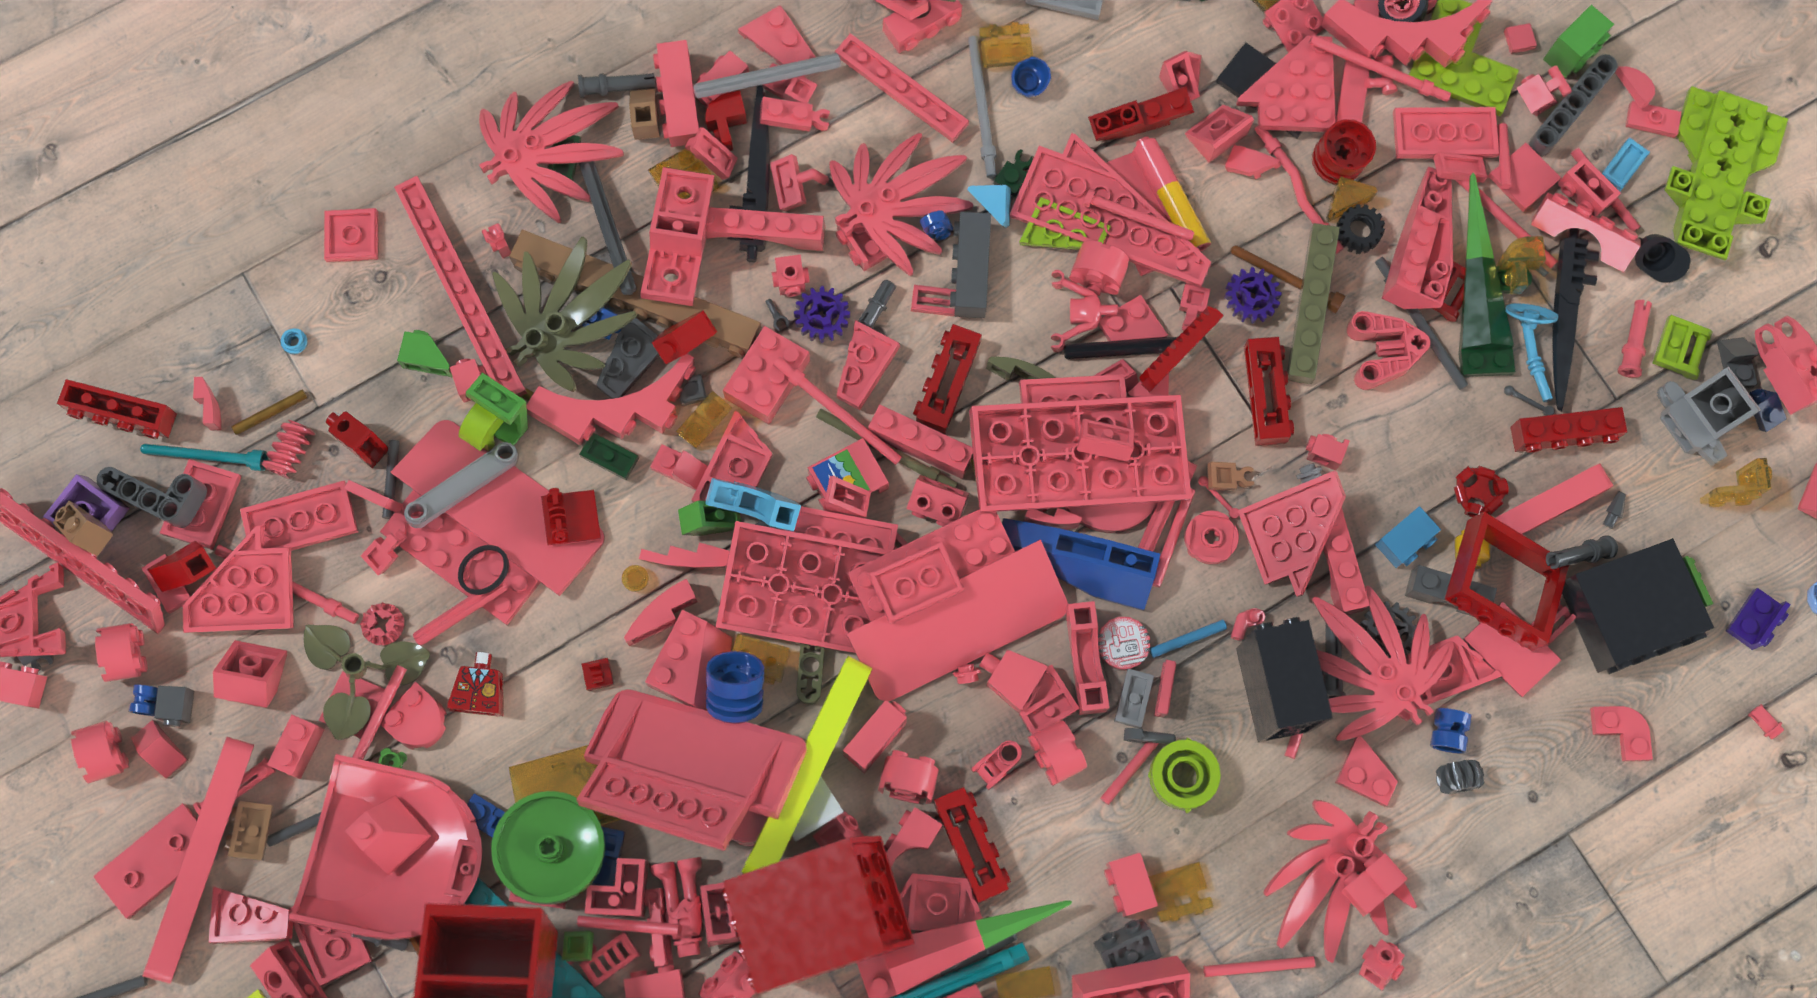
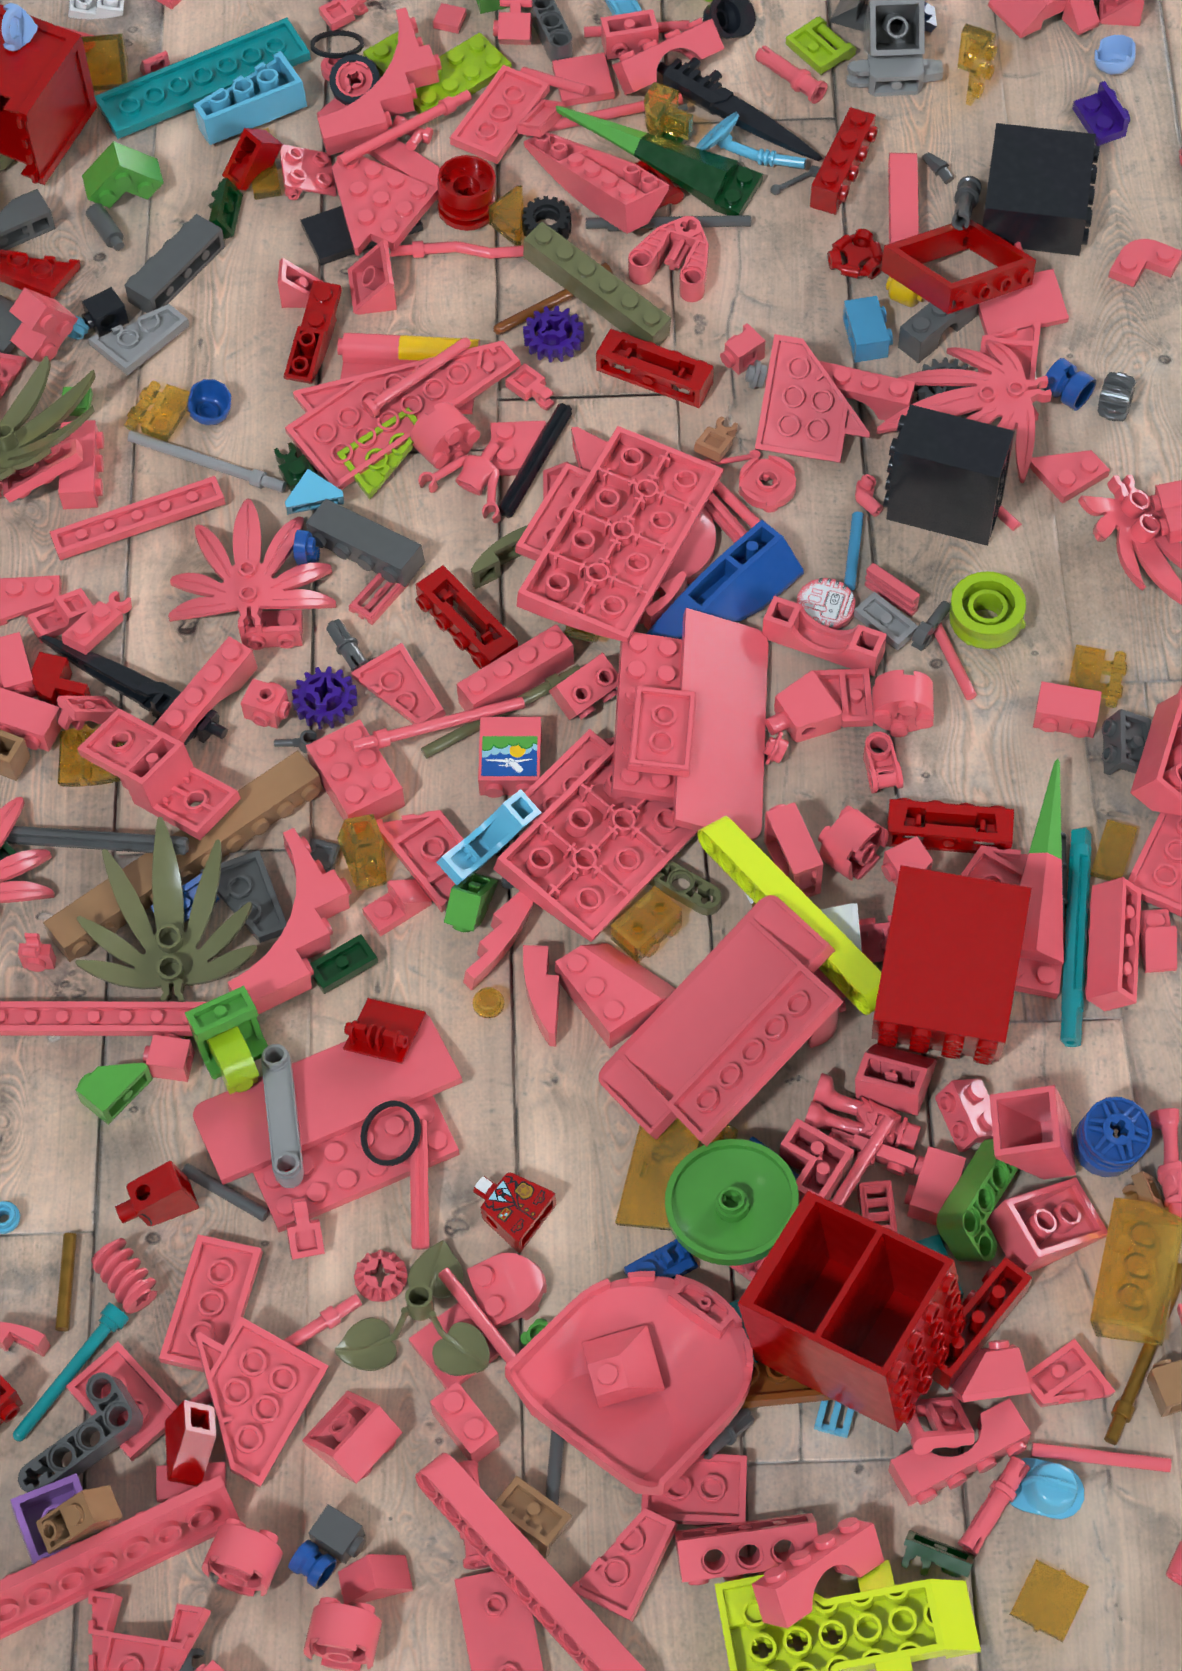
camera: 55 degrees left, 15 degrees down
(373, 496) = (237, 1209): coral tile -> none
(597, 674) = (568, 1088): red tile -> none
(684, 337) = (267, 822): red slope -> none
(734, 686) = (668, 945): blue wheel -> none
(767, 75) = (42, 620): light grey axle -> none
(789, 182) = (166, 659): coral plate -> none
(846, 498) = (533, 757): coral slope -> none
(1106, 440) = (624, 502): coral slope -> none
(1180, 348) = (571, 406): red gear -> none
(1250, 162) = (421, 273): coral slope -> none

